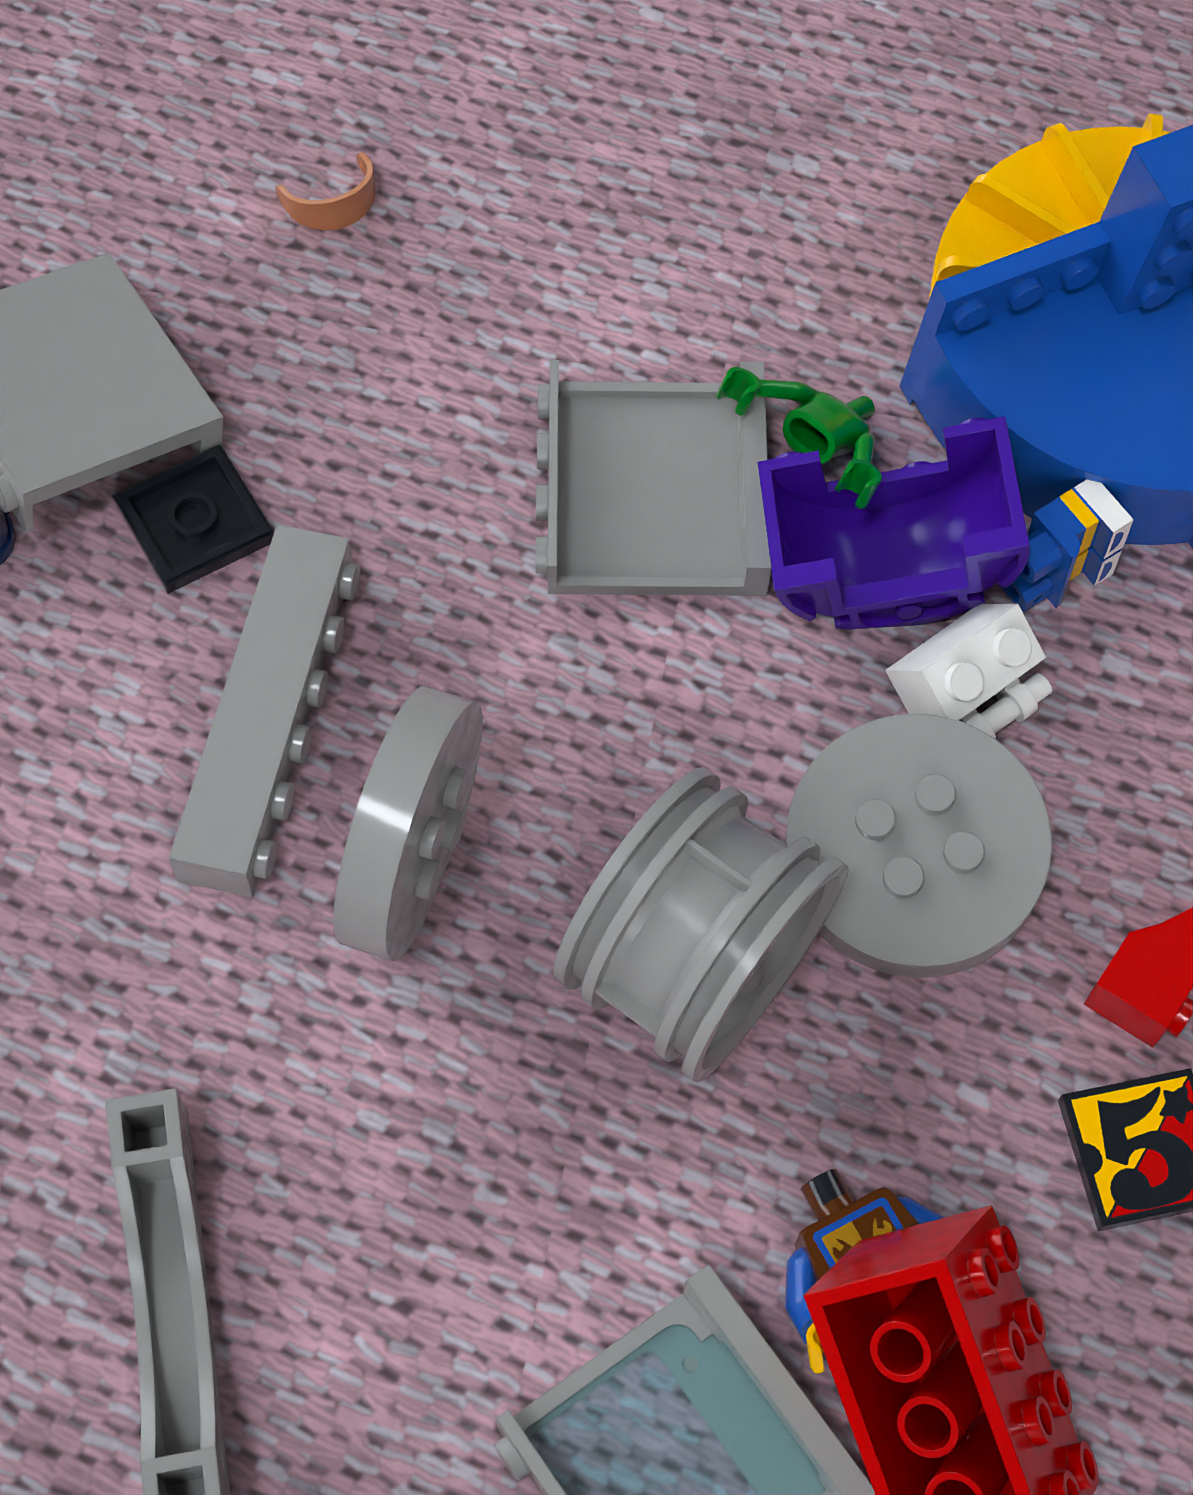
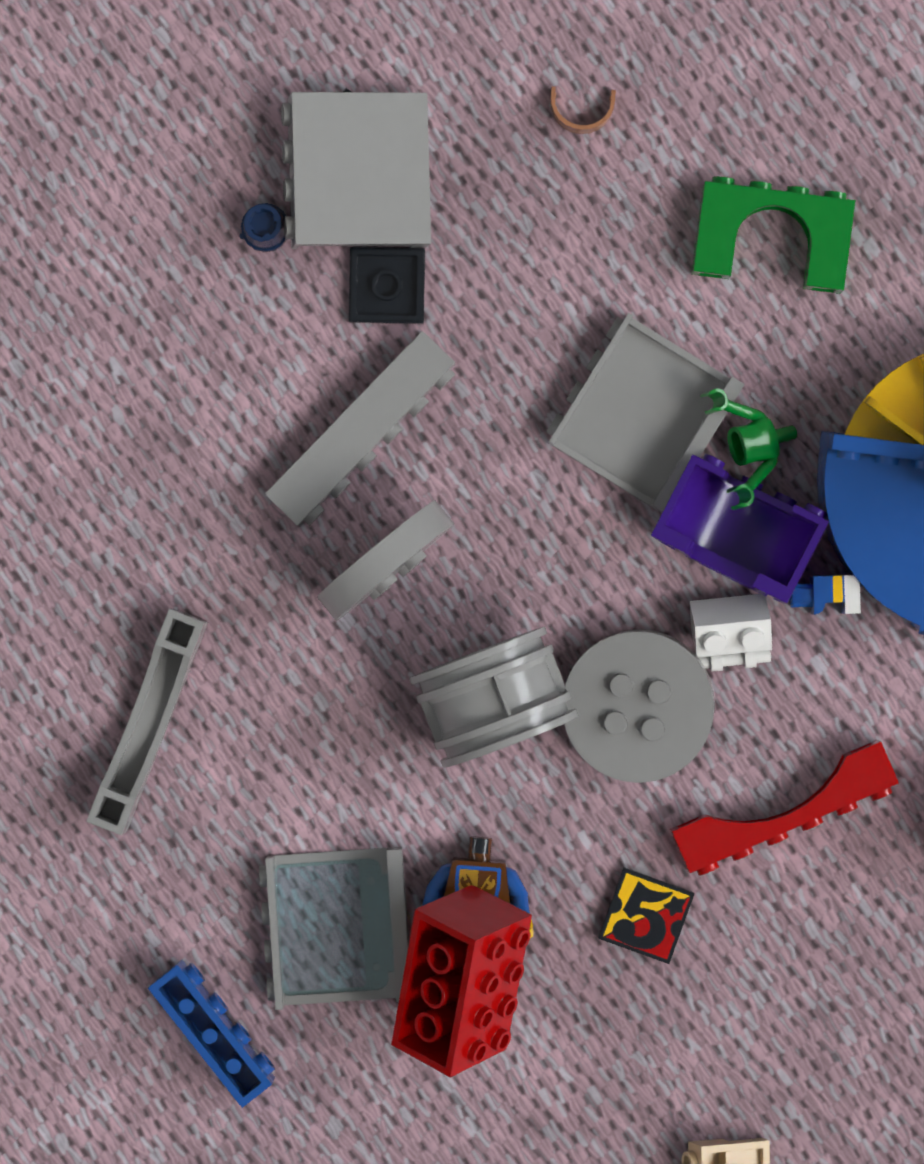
camera: 30 degrees right, 25 degrees up
(719, 150) = (824, 219): none -> green arch

